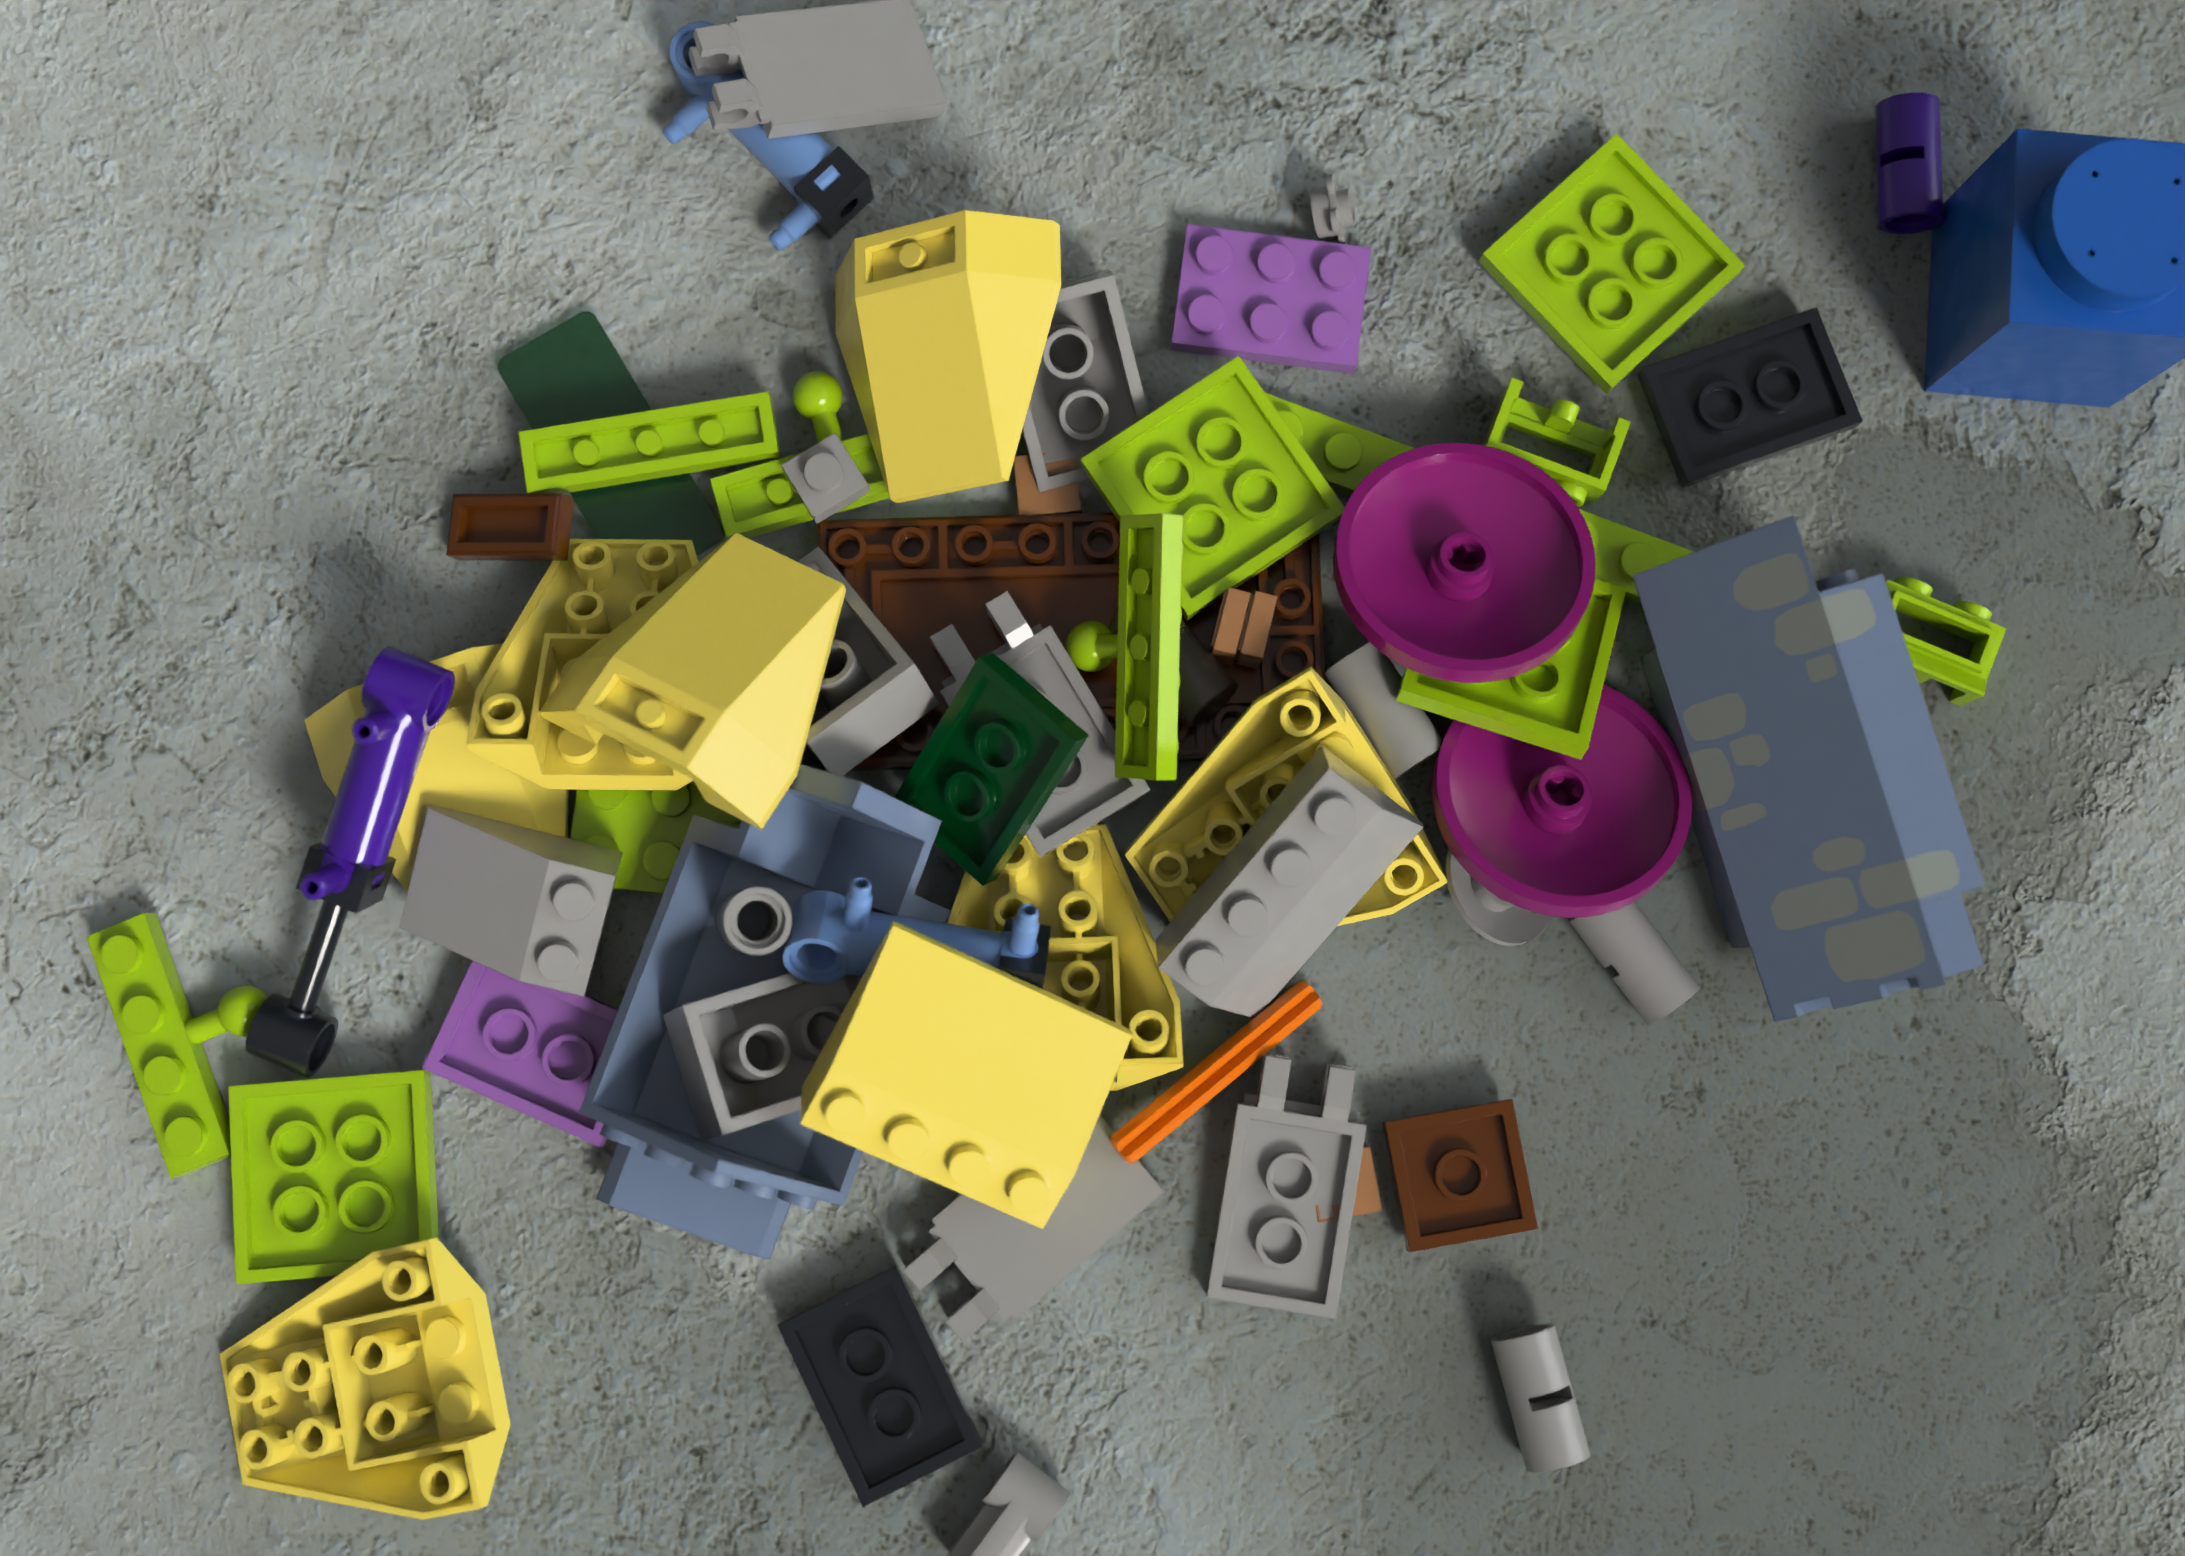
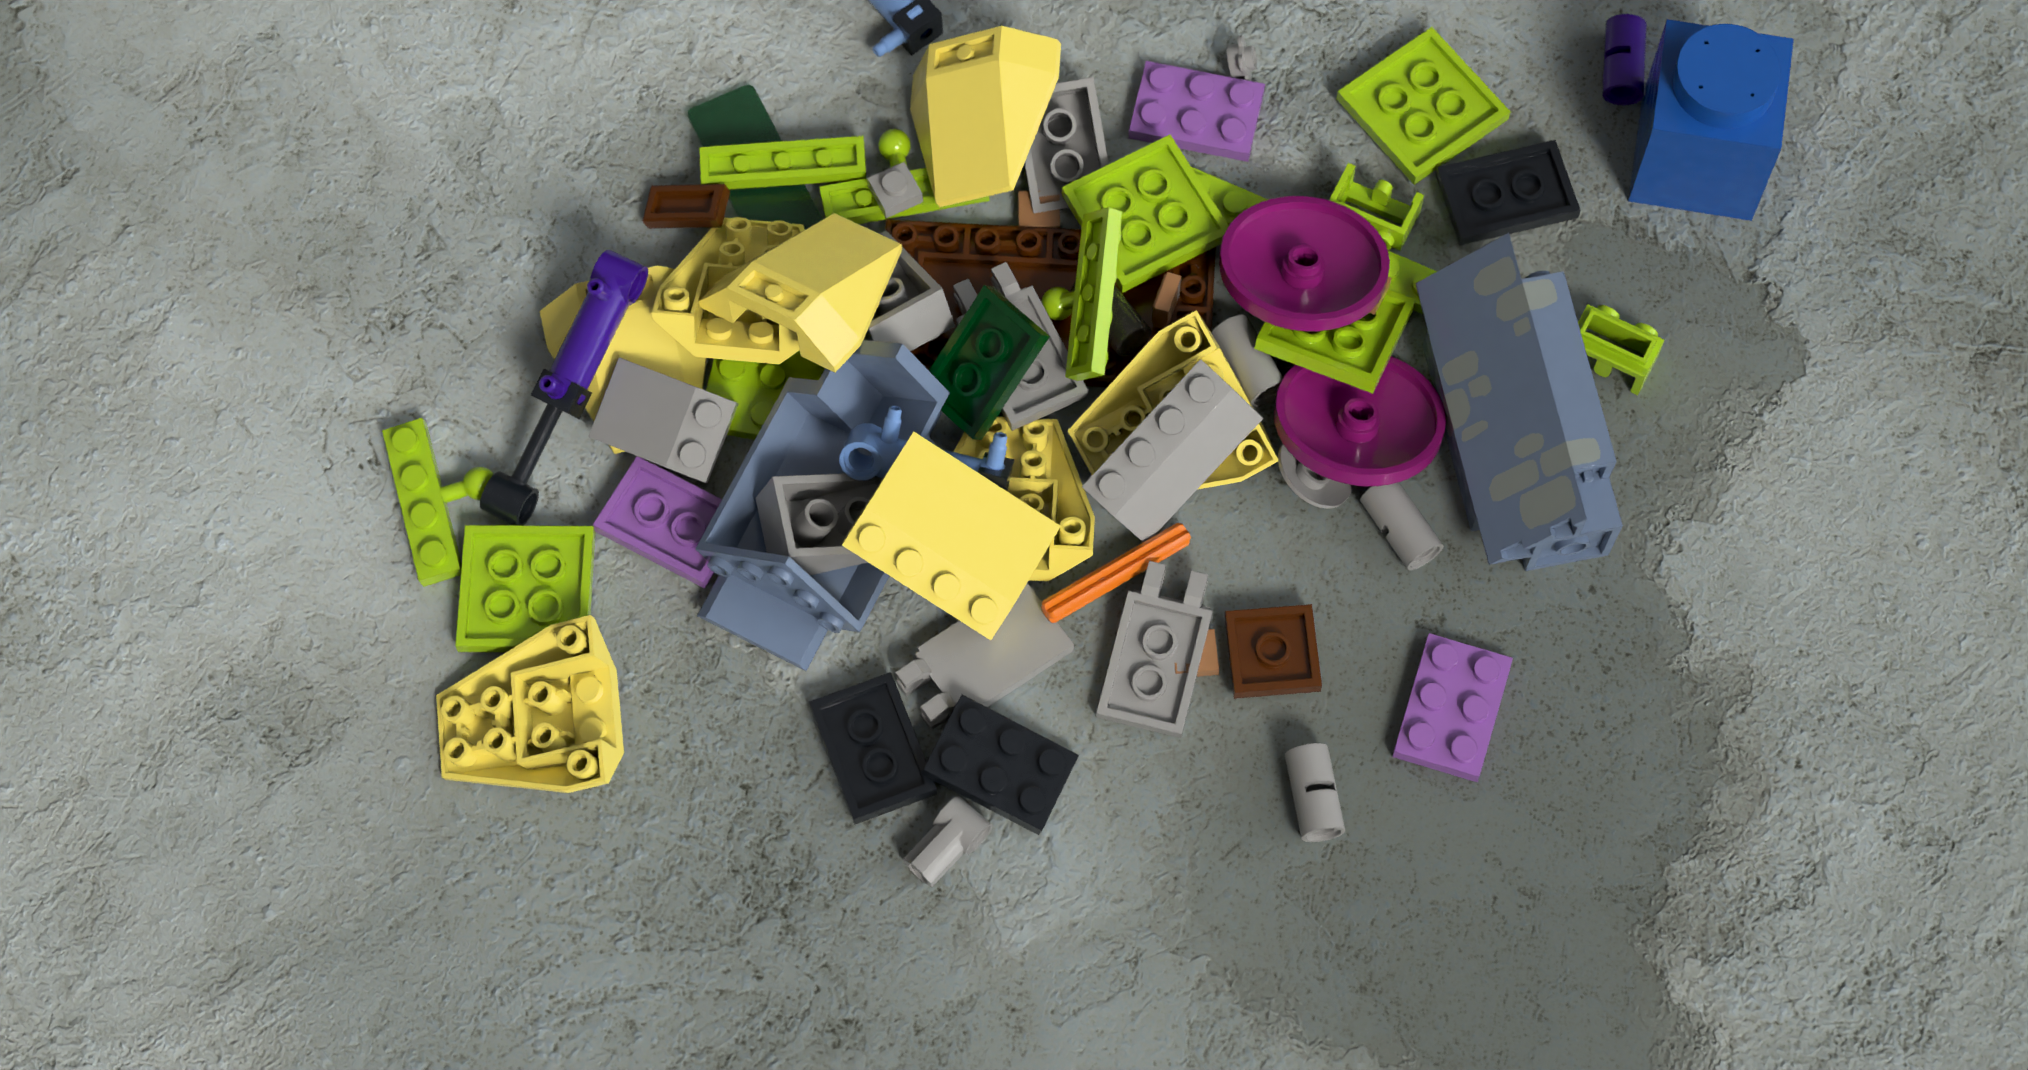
camera: 10 degrees right, 15 degrees down
(779, 920) = (822, 438): light grey pin -> none
(1071, 1397) = (1000, 764): none -> black plate
(1229, 625) = (1148, 294): medium nougat tile -> none
(1728, 1235) = (1452, 707): none -> medium lavender plate

